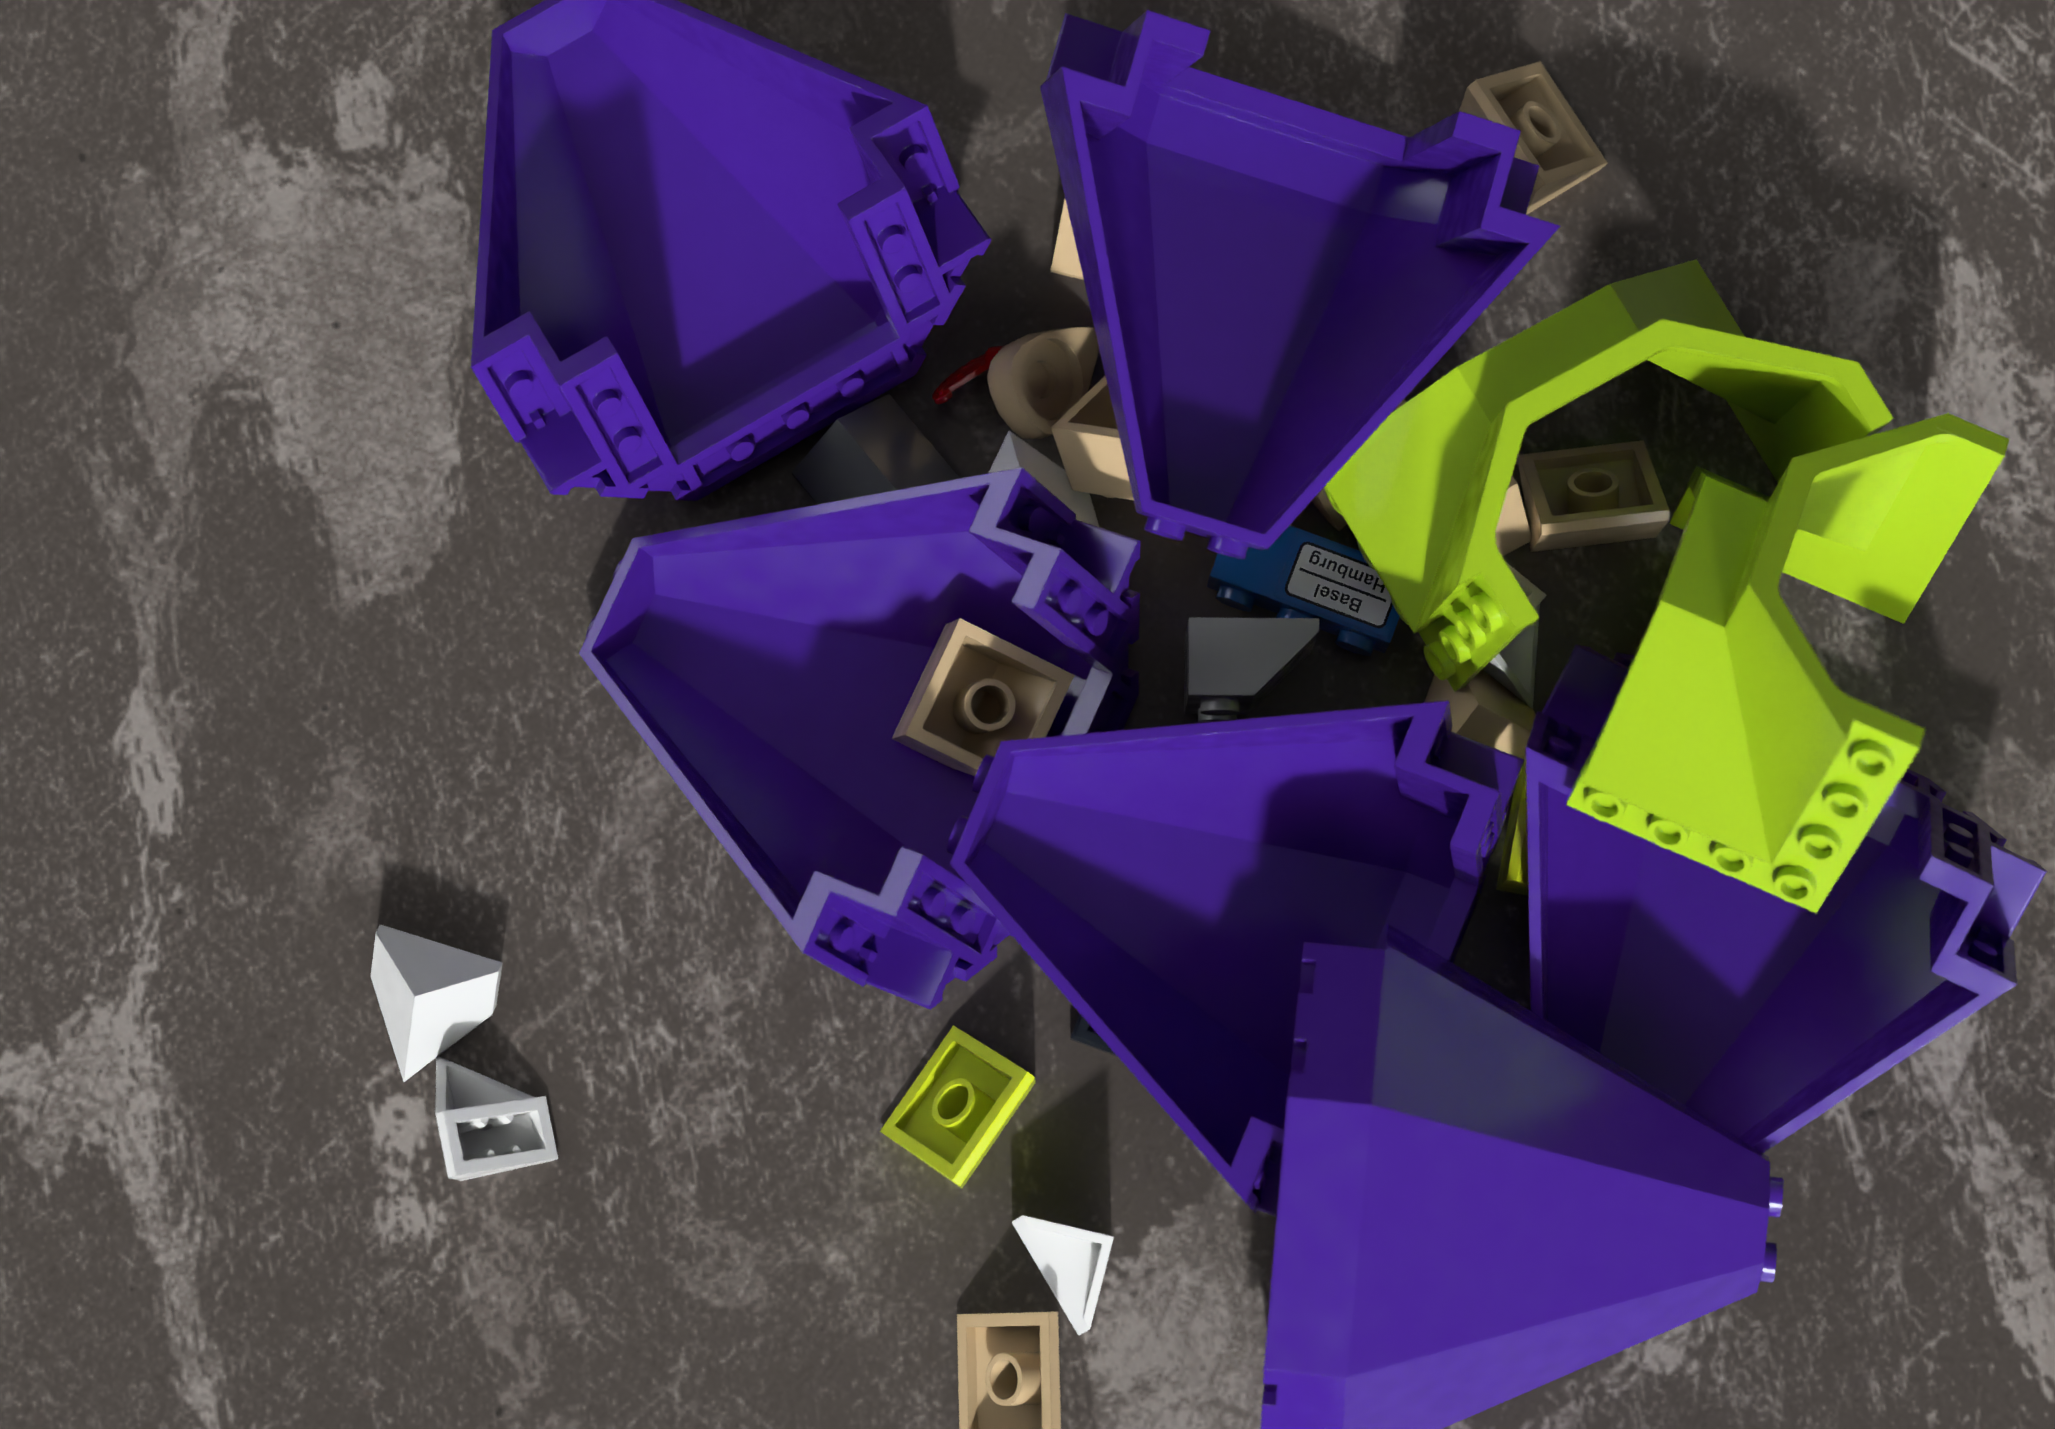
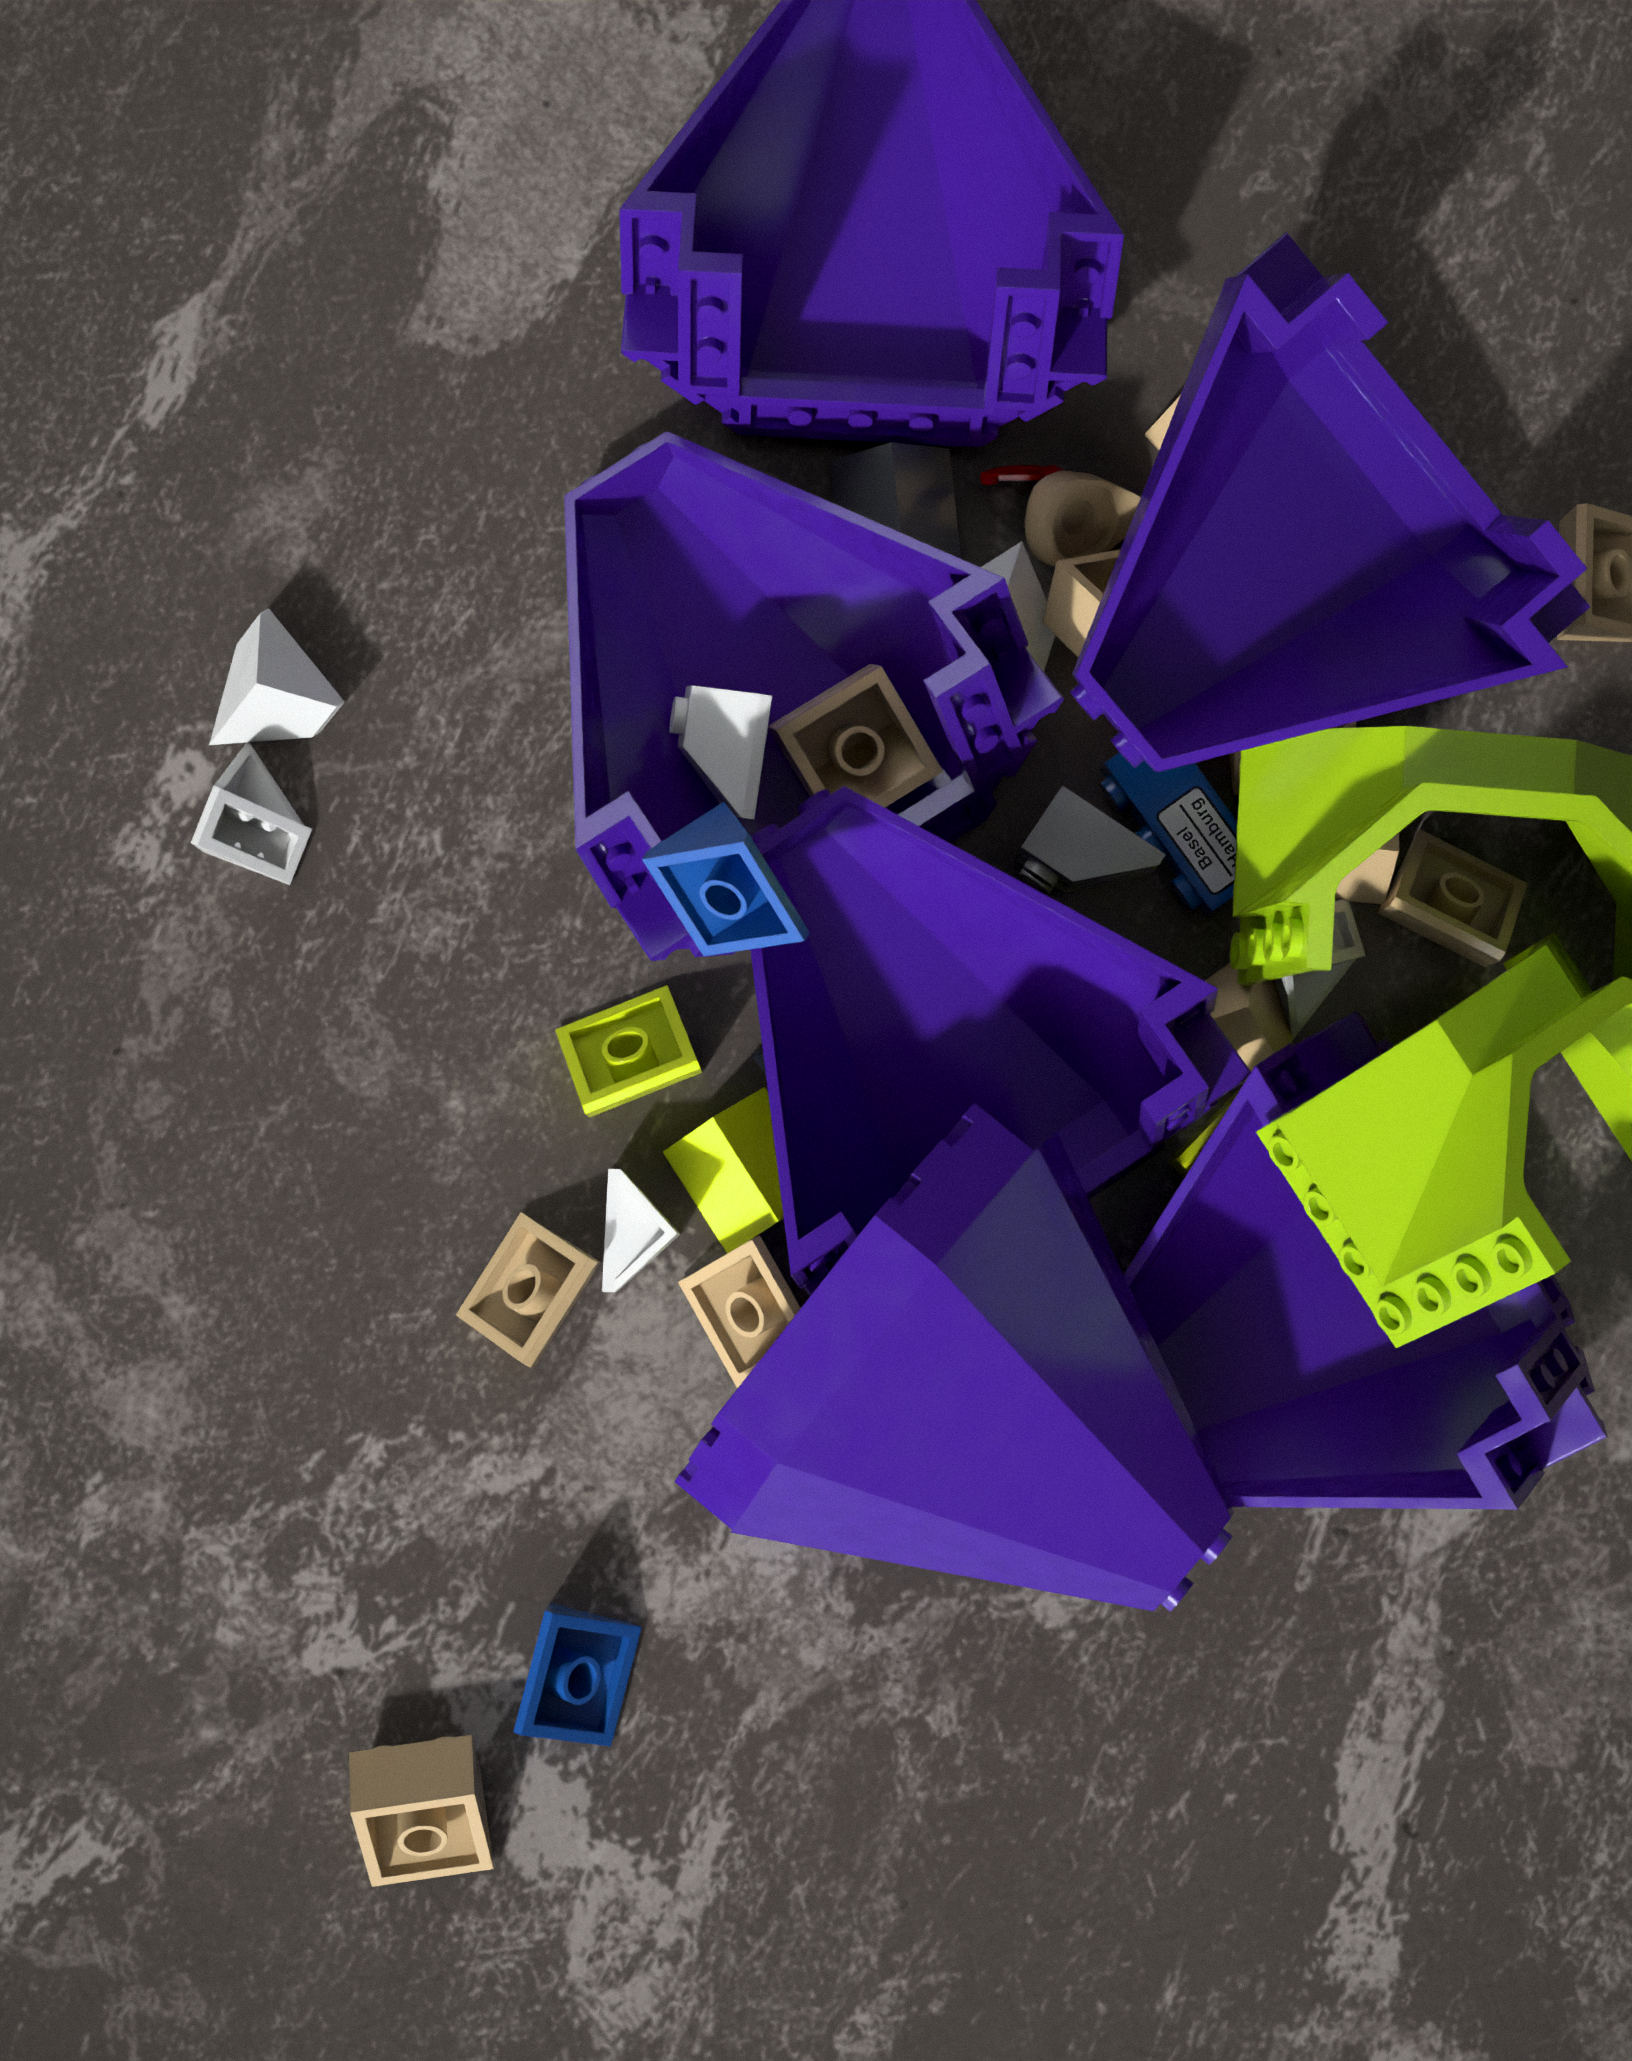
camera: 25 degrees right, 5 degrees up
(866, 776) = (724, 742): none -> white slope
(958, 897) = (723, 886): none -> blue slope
(1125, 1148) = (733, 1171): none -> neon yellow slope
(1214, 1266) = (741, 1305): none -> tan slope

